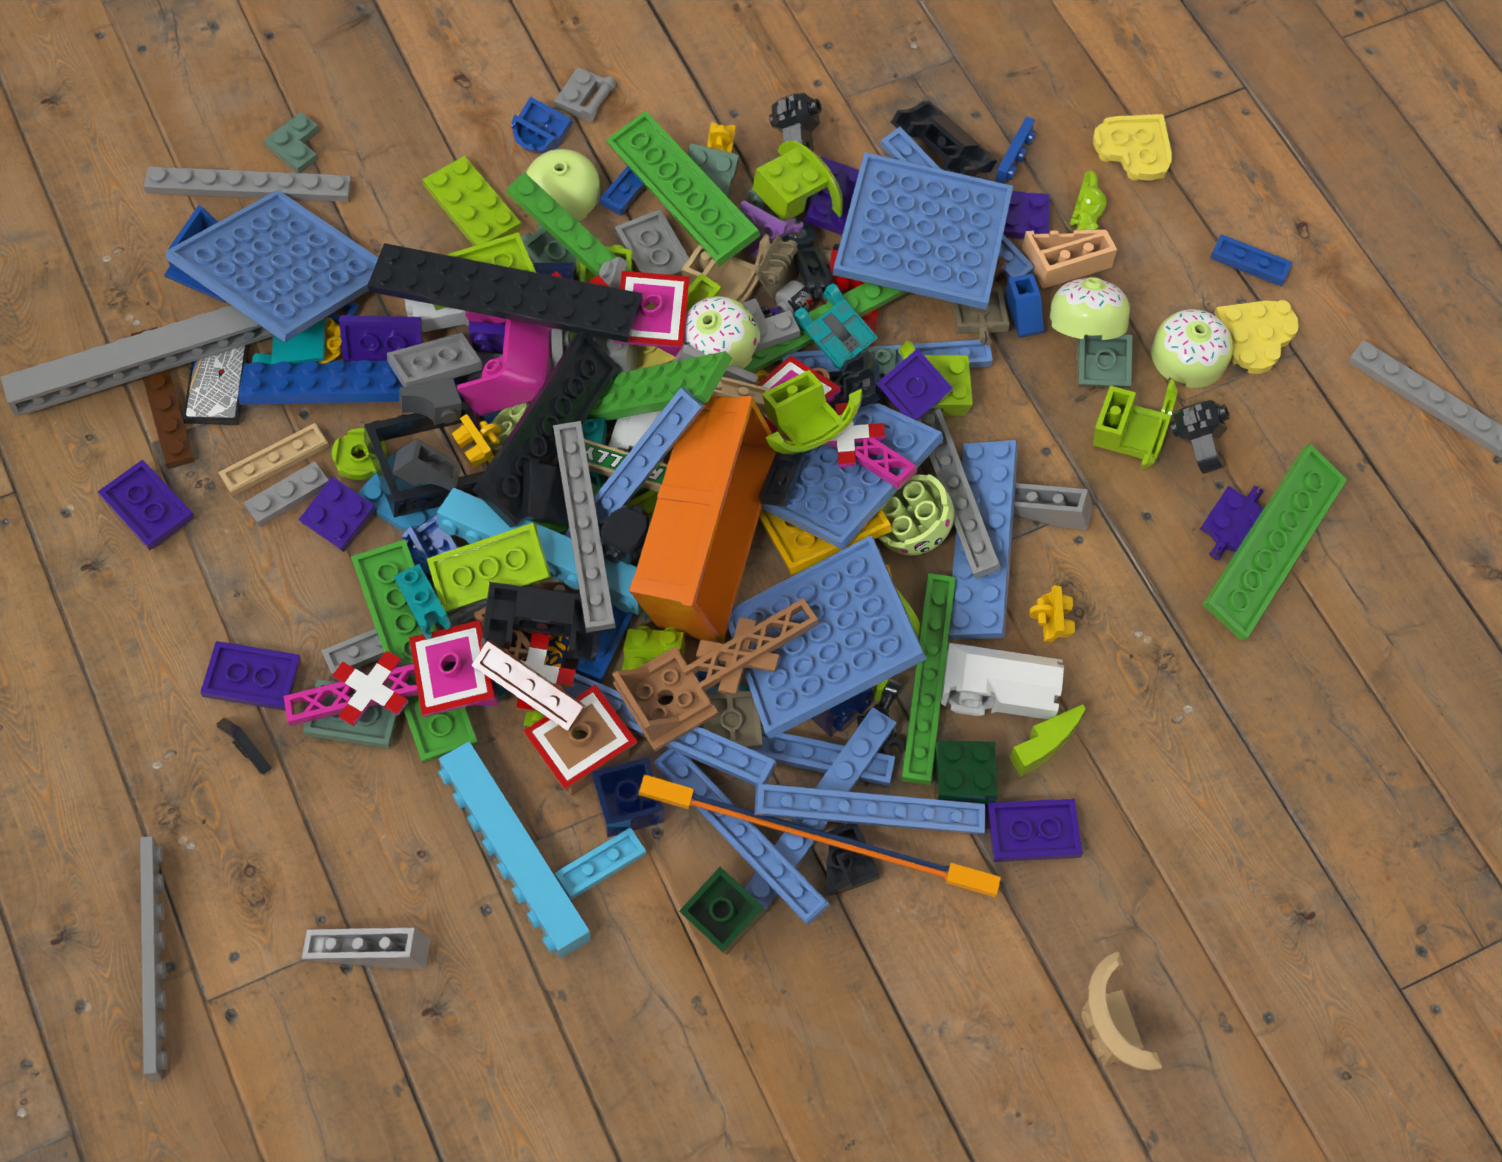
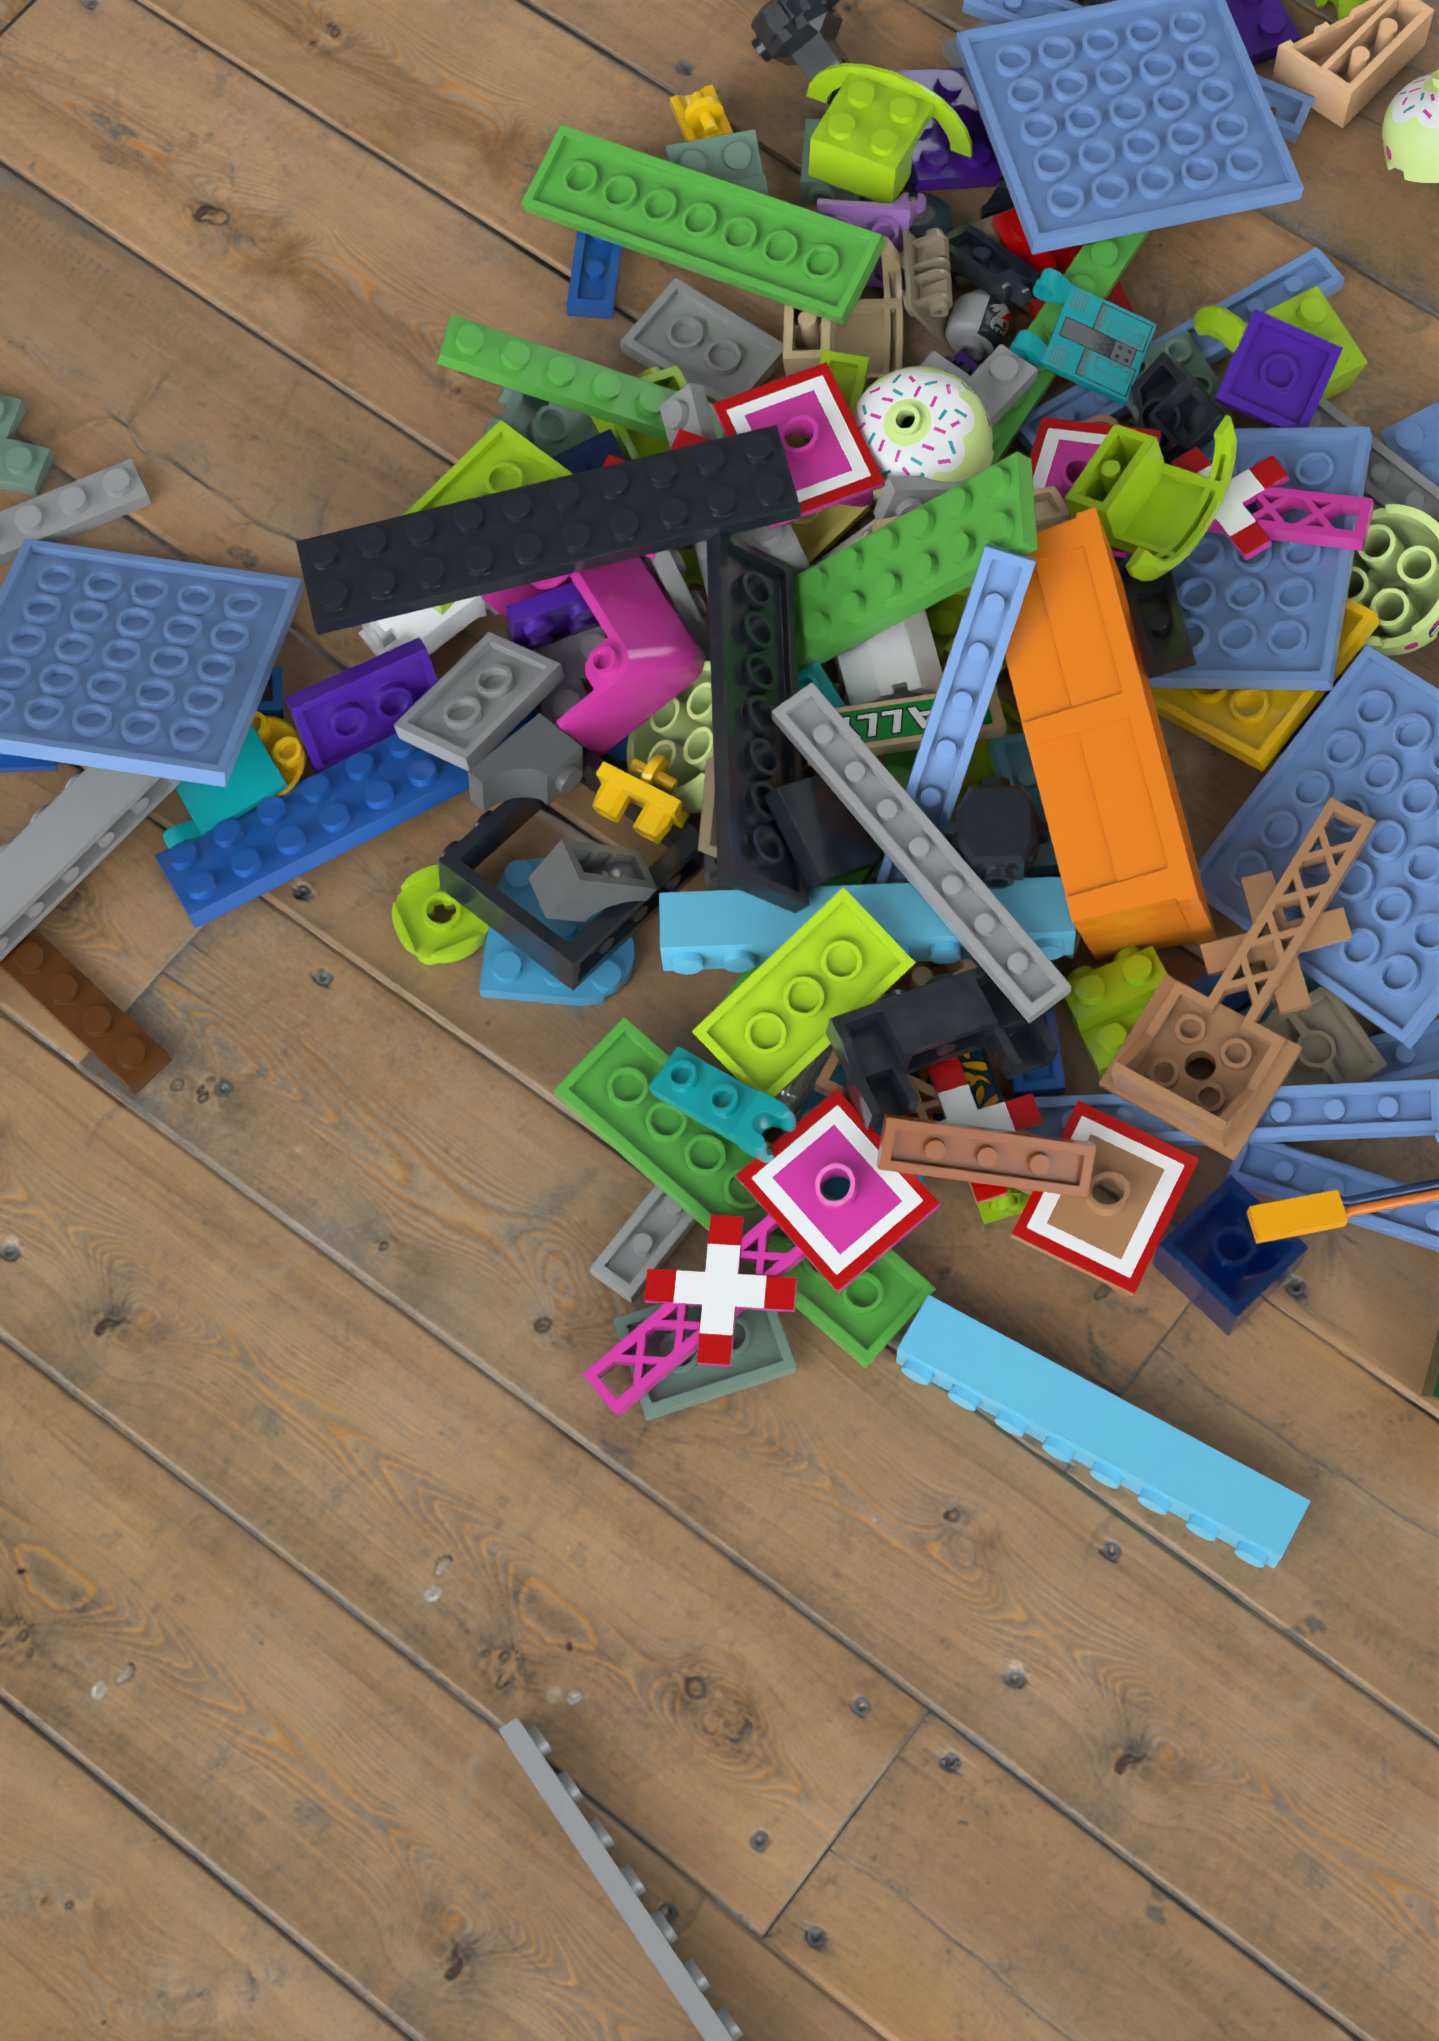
camera: 20 degrees left, 5 degrees up
(146, 504) = (141, 1172): dark purple plate -> none
(215, 388) = (133, 921): tile -> none
(244, 745) = (556, 1485): black tile -> none
(250, 675) = (498, 1368): dark purple plate -> none
(273, 459) = (303, 992): tan tile -> none
(286, 494) = (362, 1038): light grey plate -> none
(337, 514) = (469, 1030): dark purple plate -> none
(368, 947) = (969, 1713): light grey slope -> none
(427, 542) = (660, 1003): blue slope -> none
(471, 202) = (359, 412): lime plate -> none
(539, 127) = (393, 232): blue slope -> none
(568, 180) = (495, 289): yellowish green cylinder -> none
(578, 91) = (414, 146): light grey plate -> none
(600, 863) = (1249, 1381): medium azure plate -> none
(981, 321) = (1287, 224): dark tan plate -> none
(1024, 305) = (1340, 165): blue slope -> none

